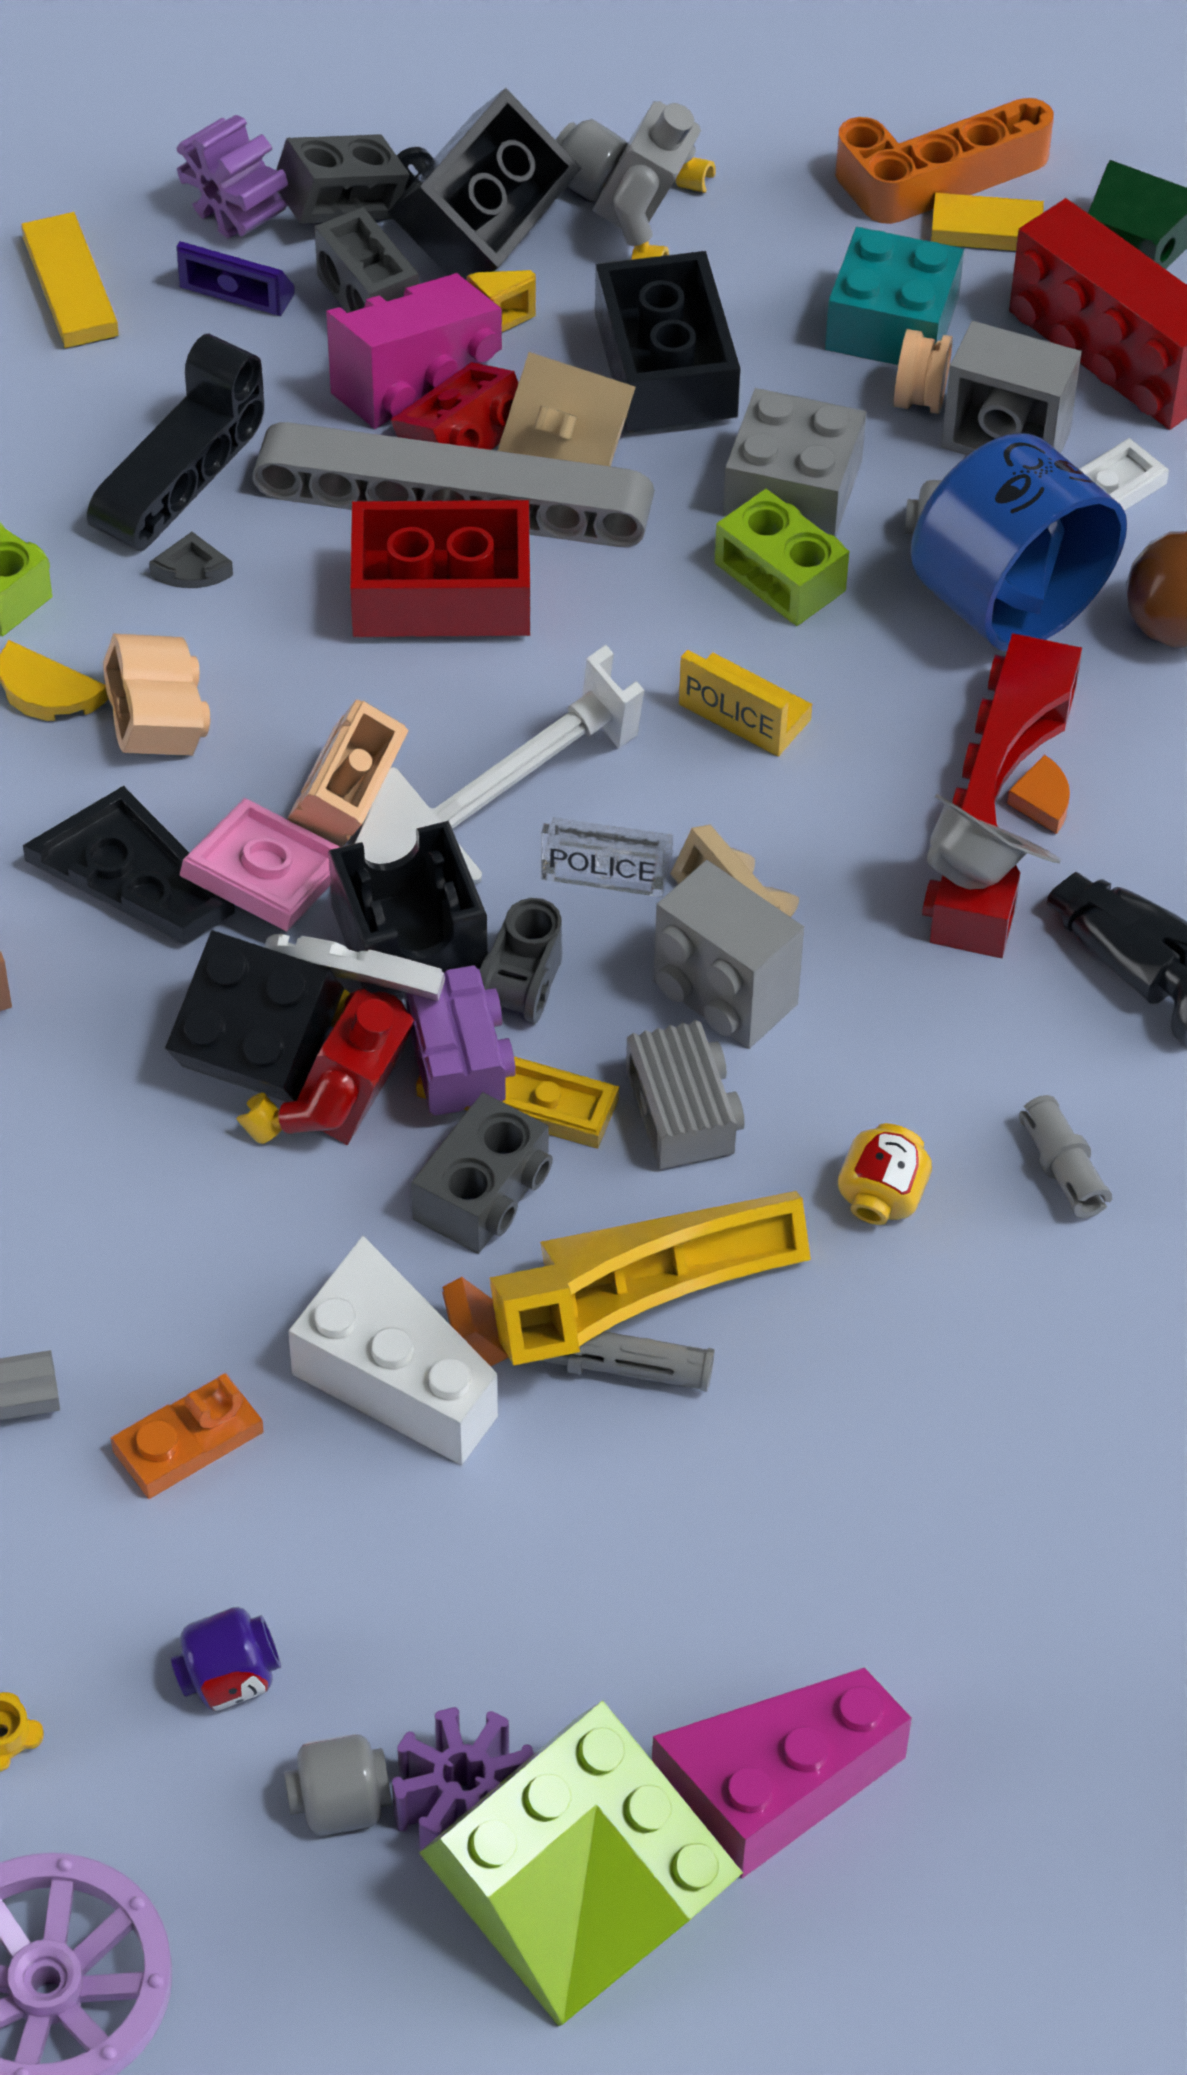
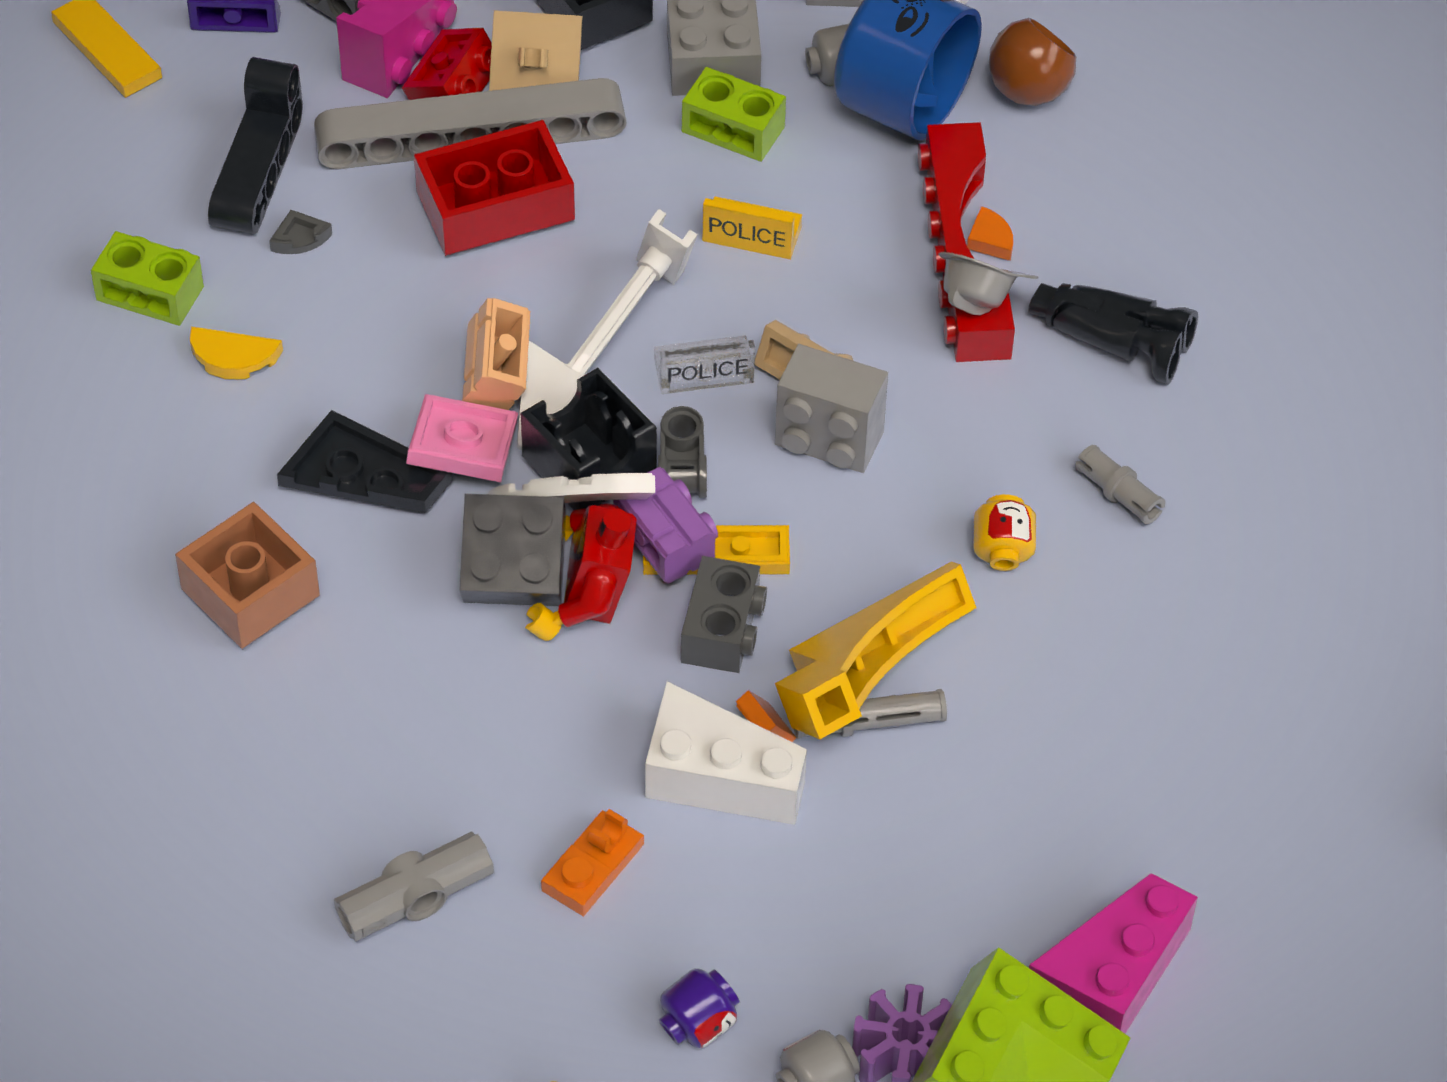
camera: 20 degrees left, 0 degrees up
(155, 694) = (323, 337): light nougat brick -> none
(682, 1094) = (837, 518): light grey brick -> none

